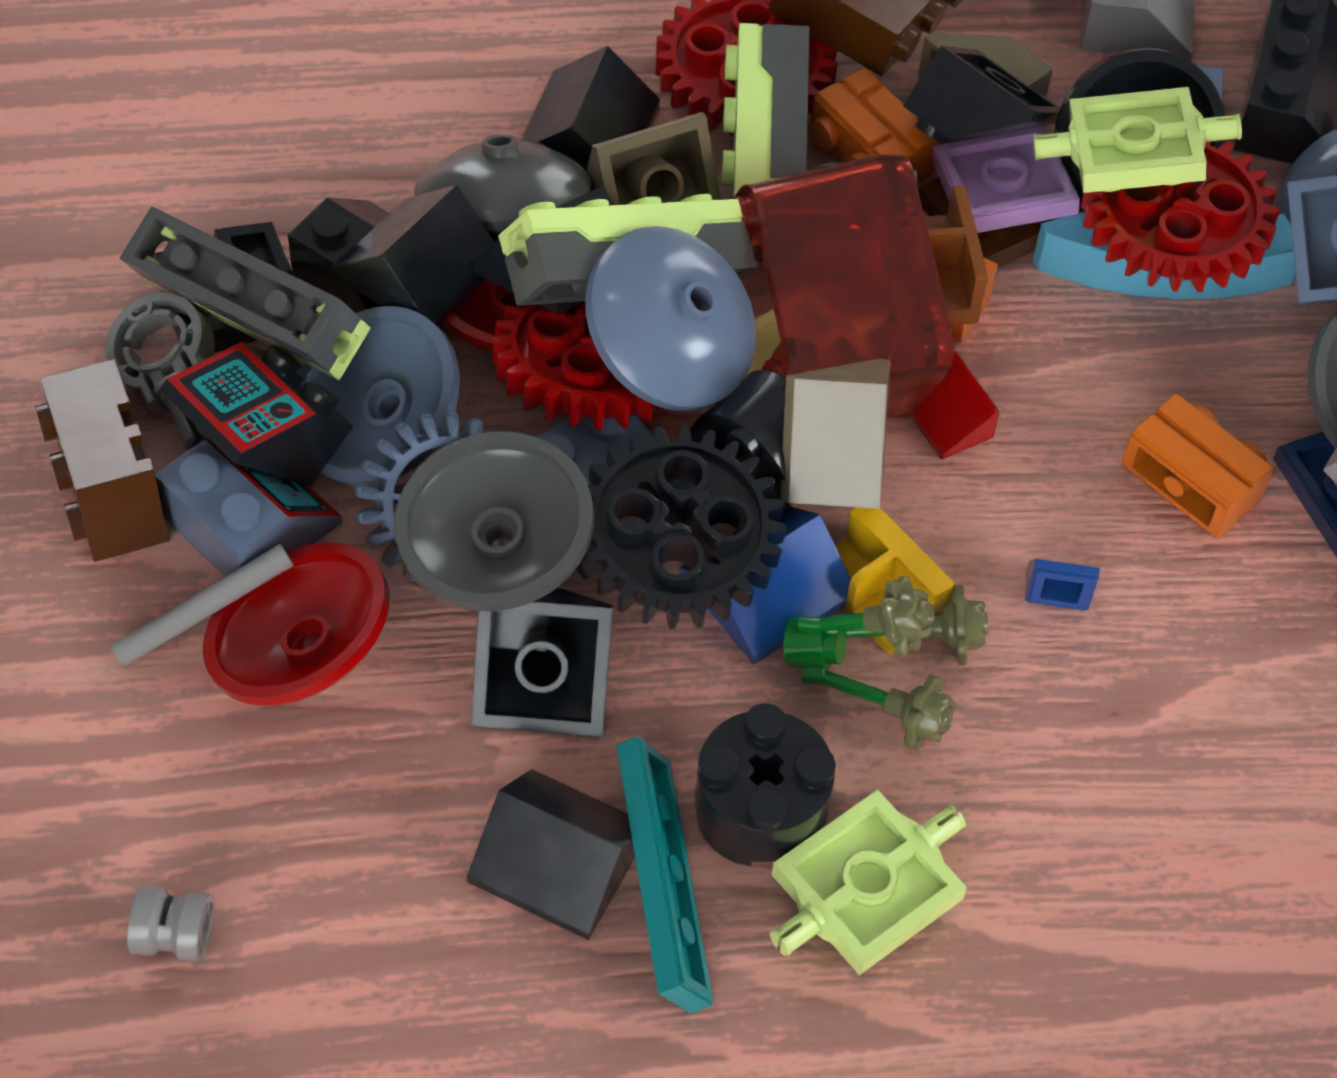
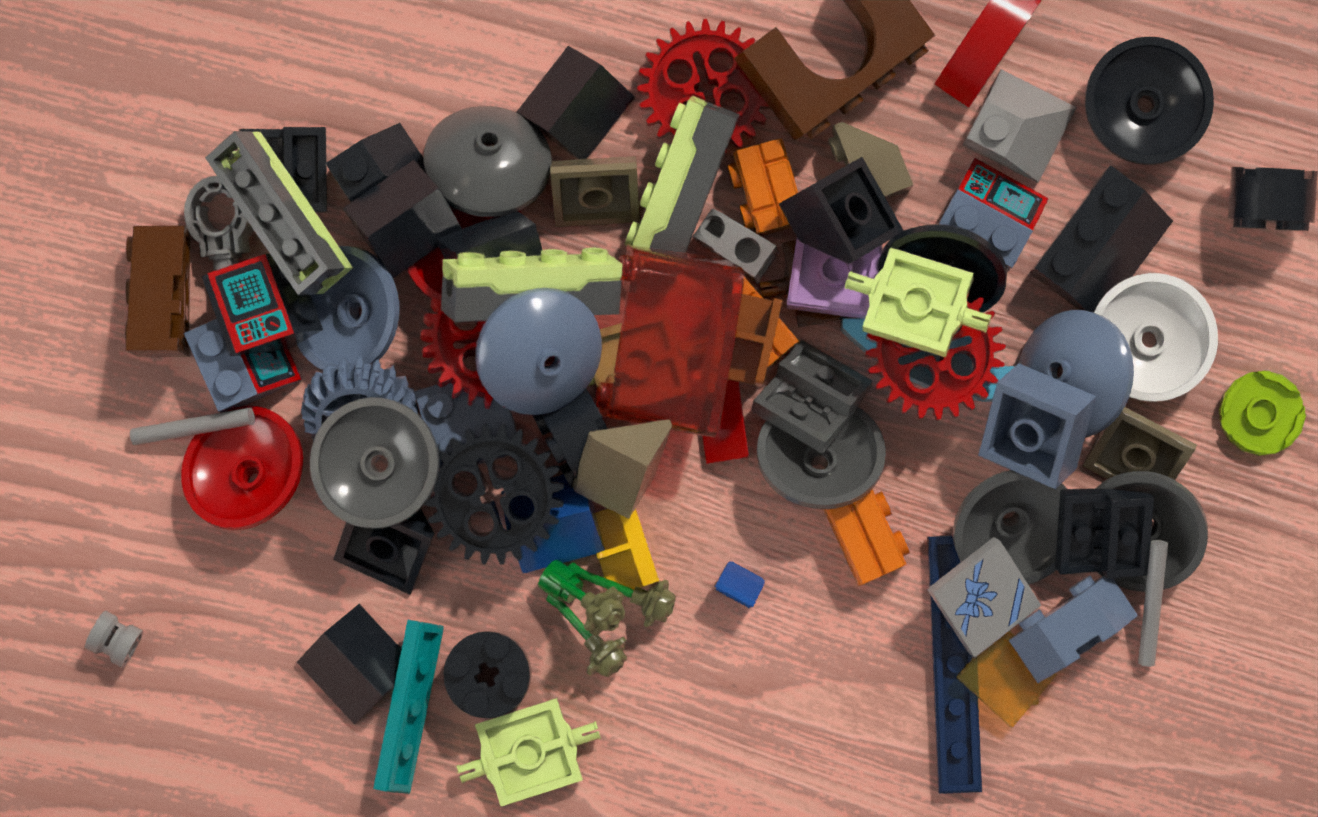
camera: 25 degrees right, 30 degrees up
(1044, 327) = (811, 396): none -> dark grey slope
(1092, 378) = (851, 464): none -> dark grey dish

